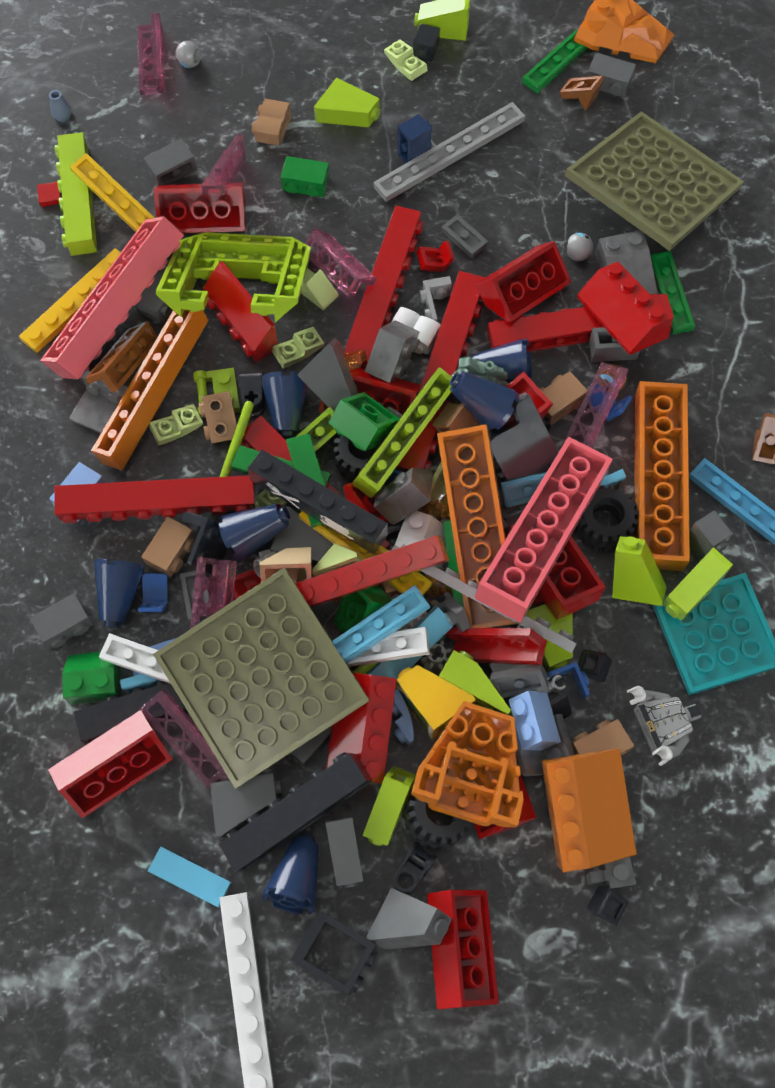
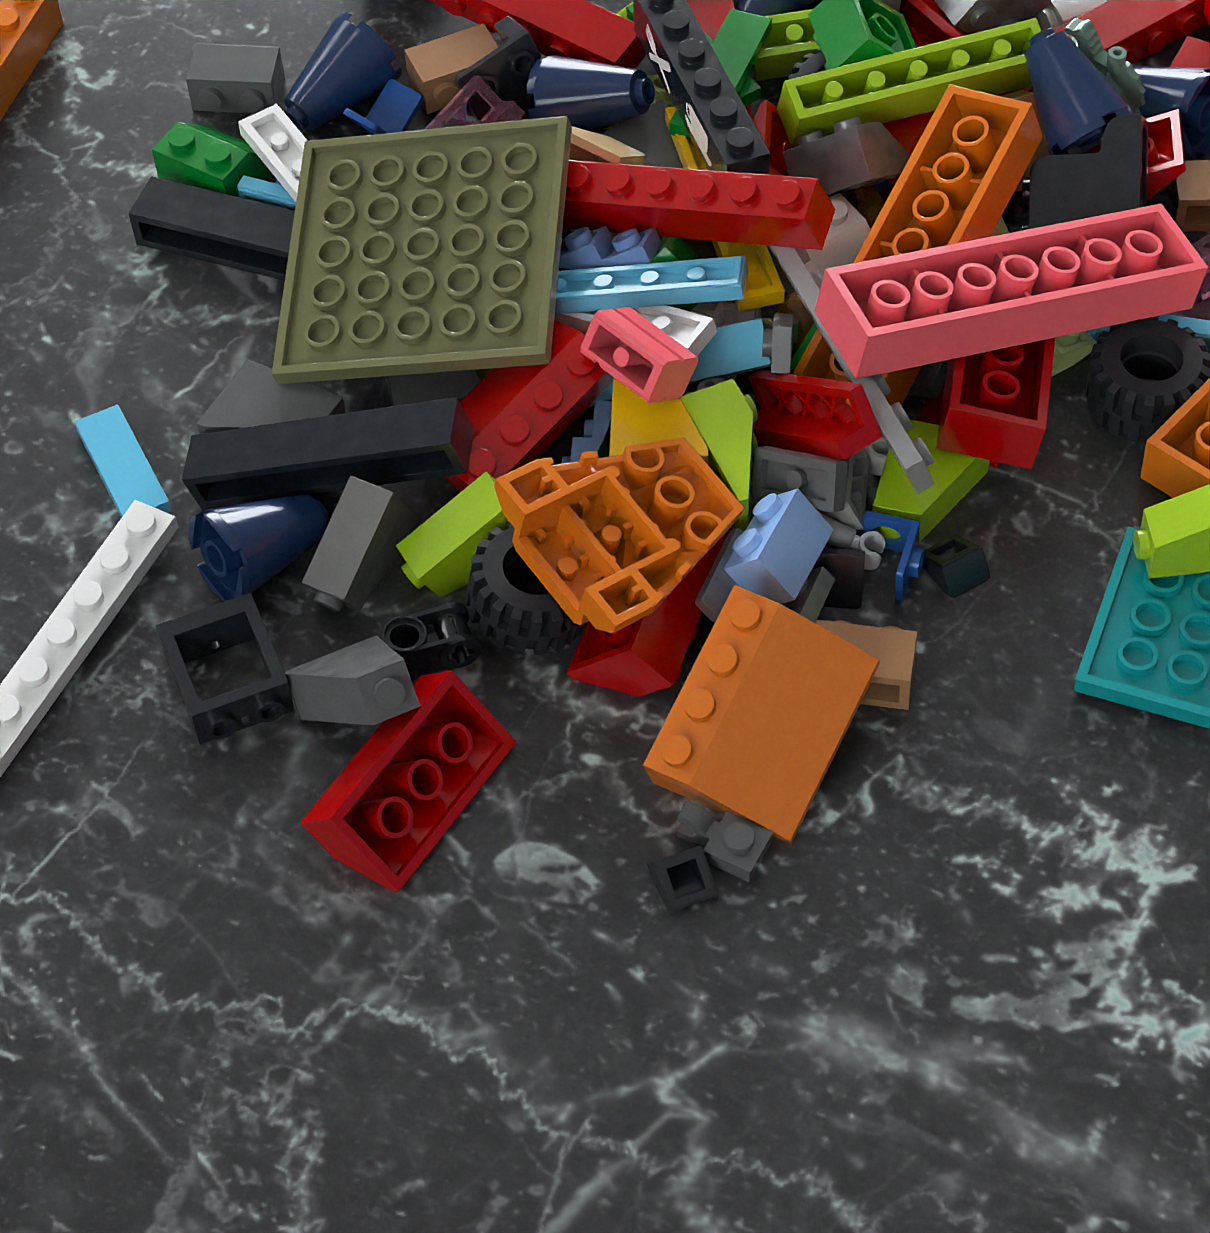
camera: 40 degrees right, 15 degrees down
(110, 764) = (140, 258): red brick -> none
(189, 728) = (275, 252): clear pink fence -> none
(347, 615) = (598, 249): none -> medium blue slope
(413, 673) = (639, 354): none -> coral brick
(637, 573) = (1122, 453): lime slope -> none
(663, 721) = (993, 686): light grey torso -> none

